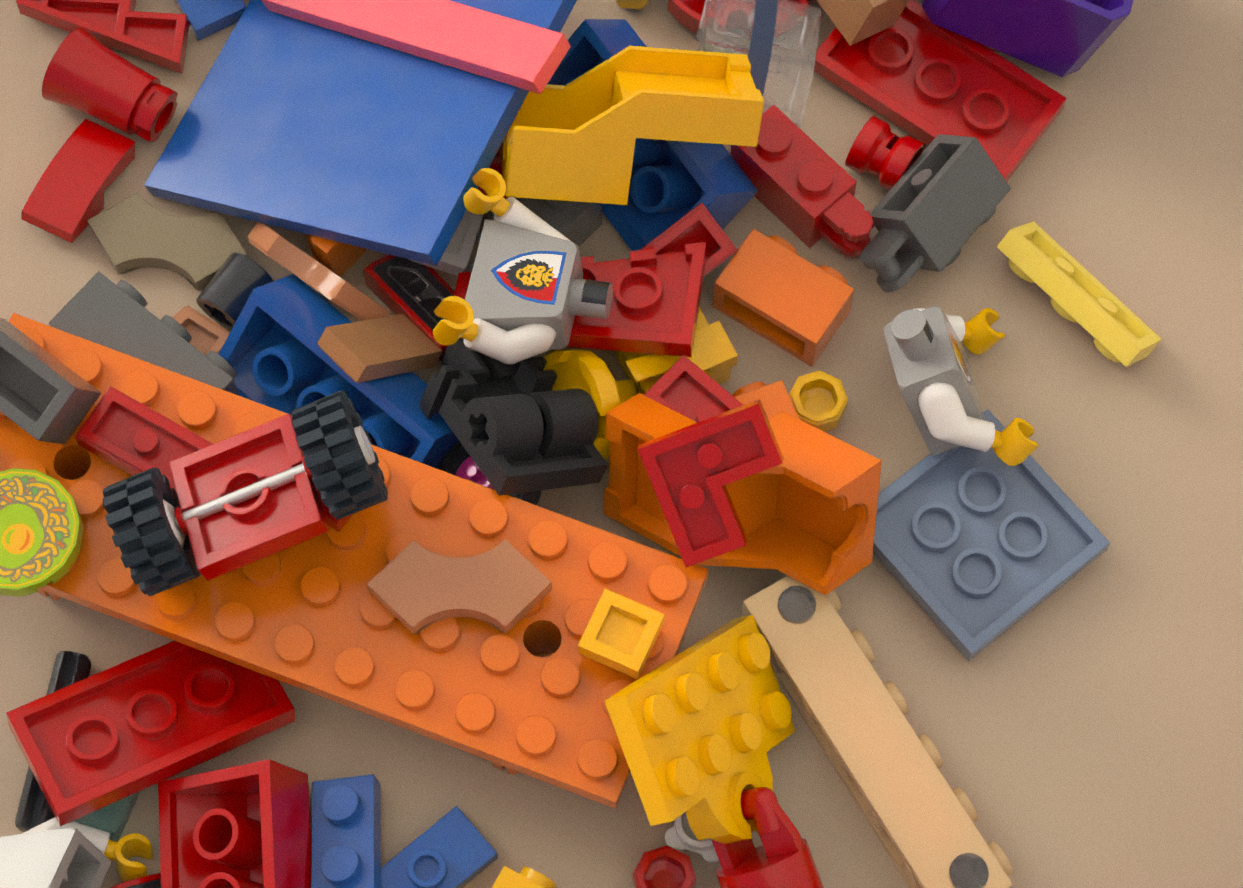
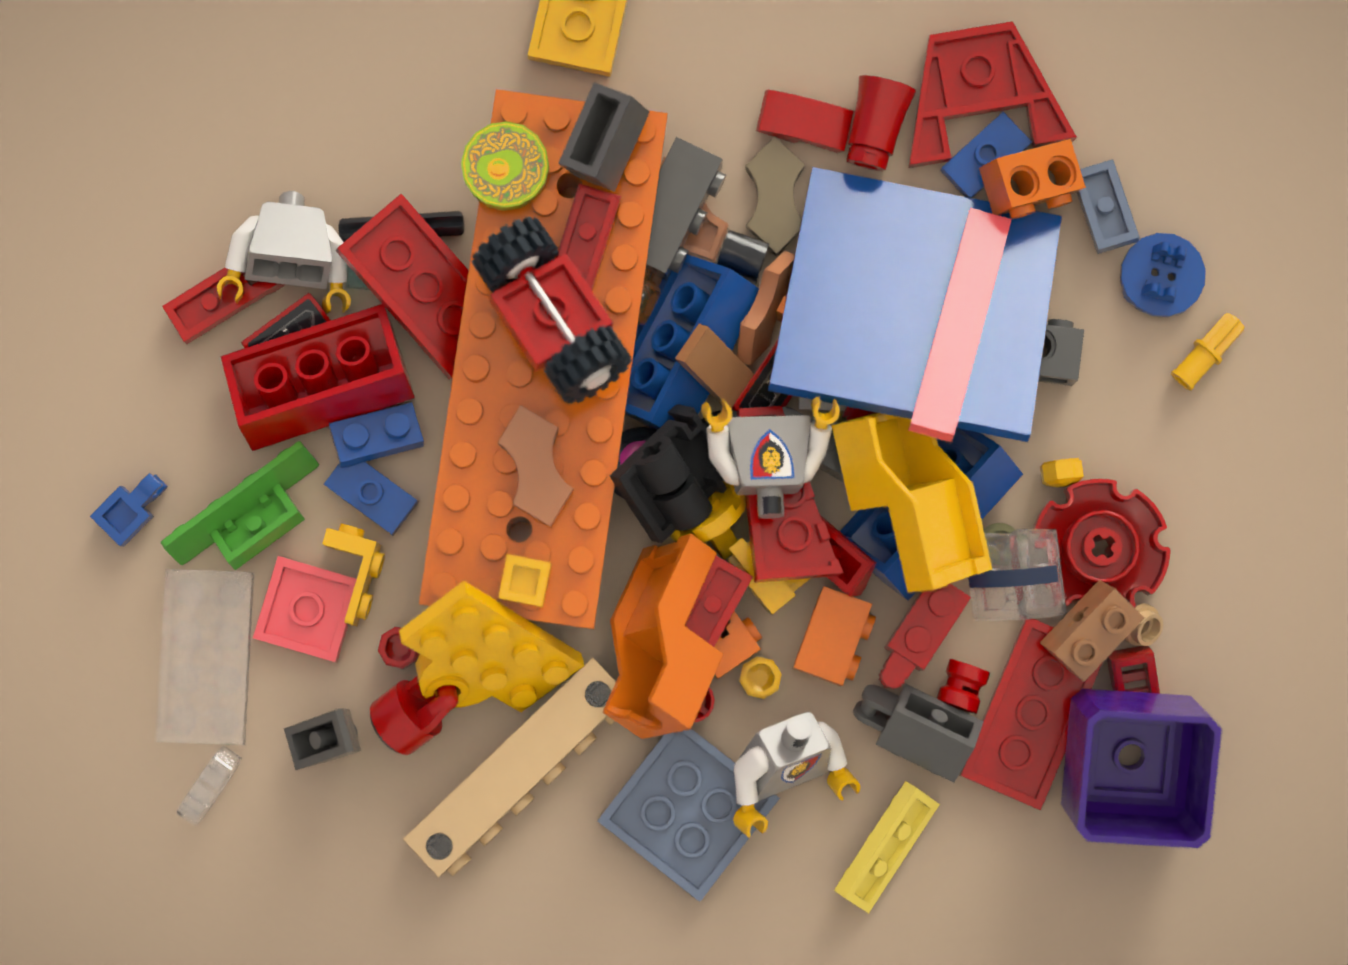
camera: 80 degrees right, 15 degrees up
(692, 474) = (645, 605): red plate -> none

